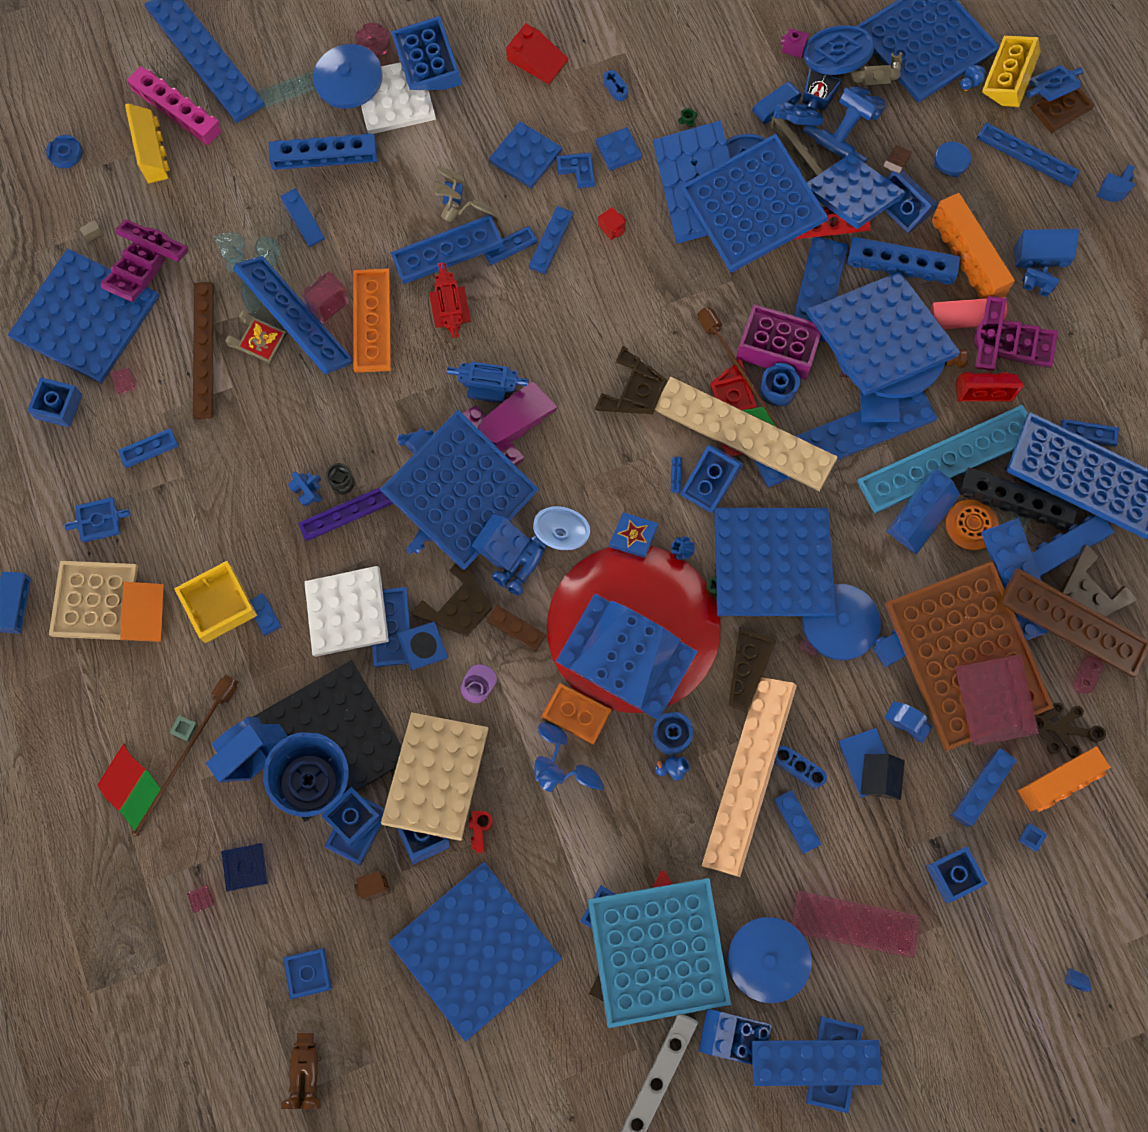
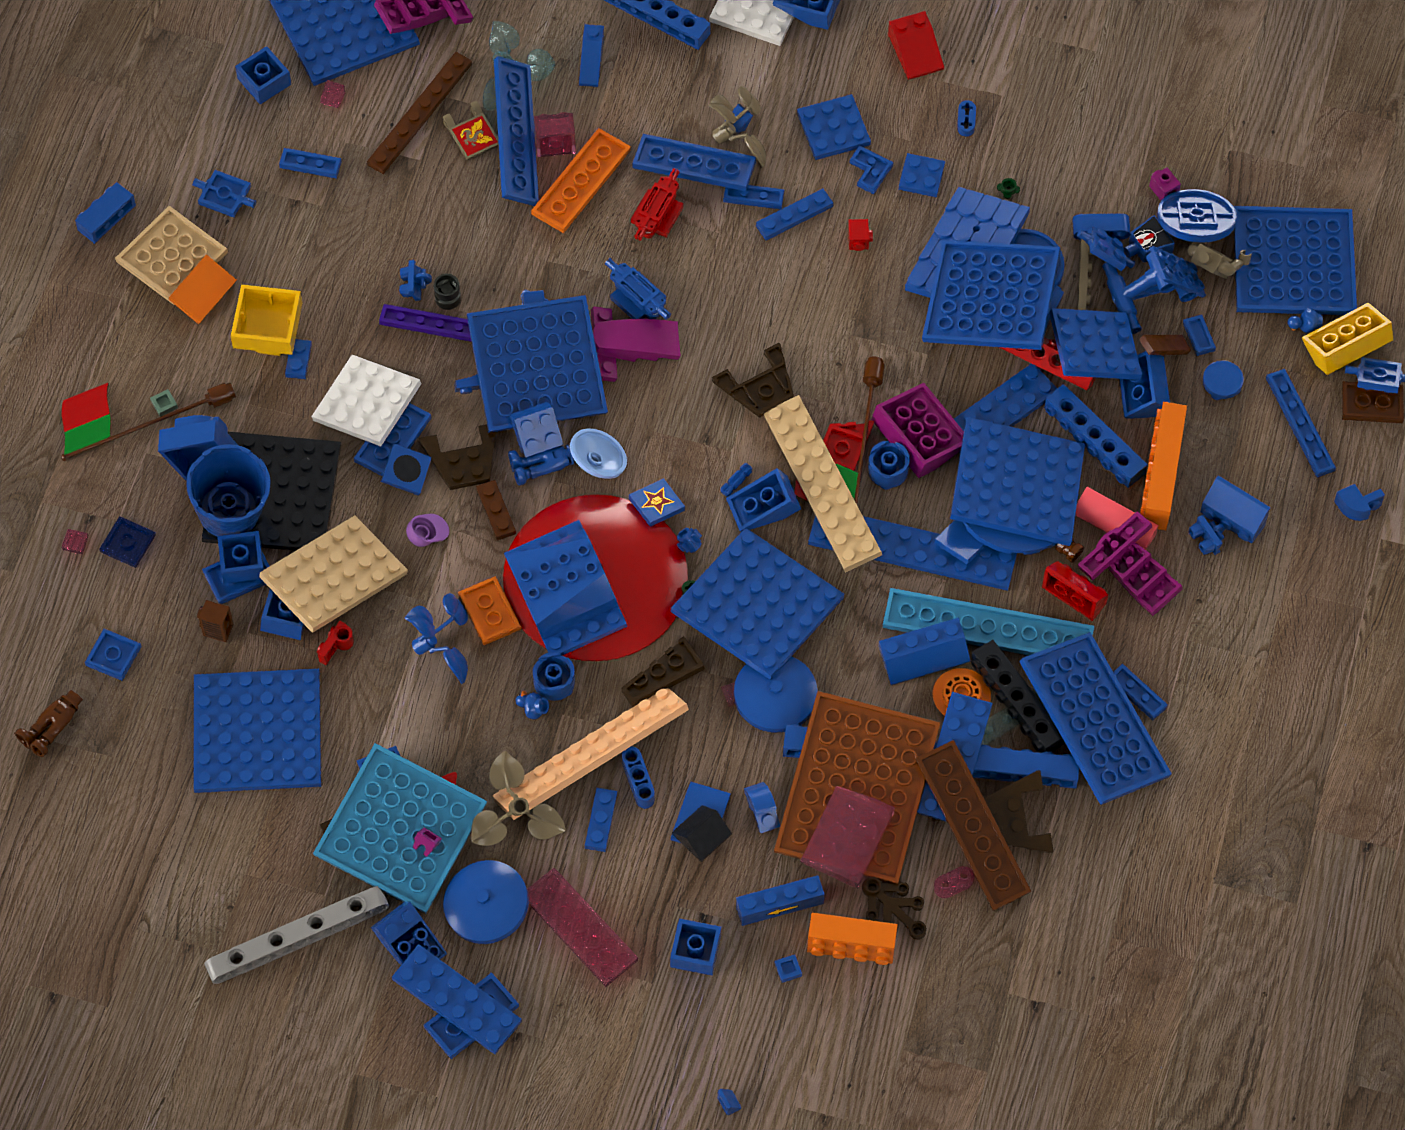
camera: 35 degrees right, 10 degrees down
(692, 948) = (427, 839): none -> magenta tile
(728, 898) = (490, 830): none -> dark tan plant
(907, 137) = (1199, 335): none -> blue tile

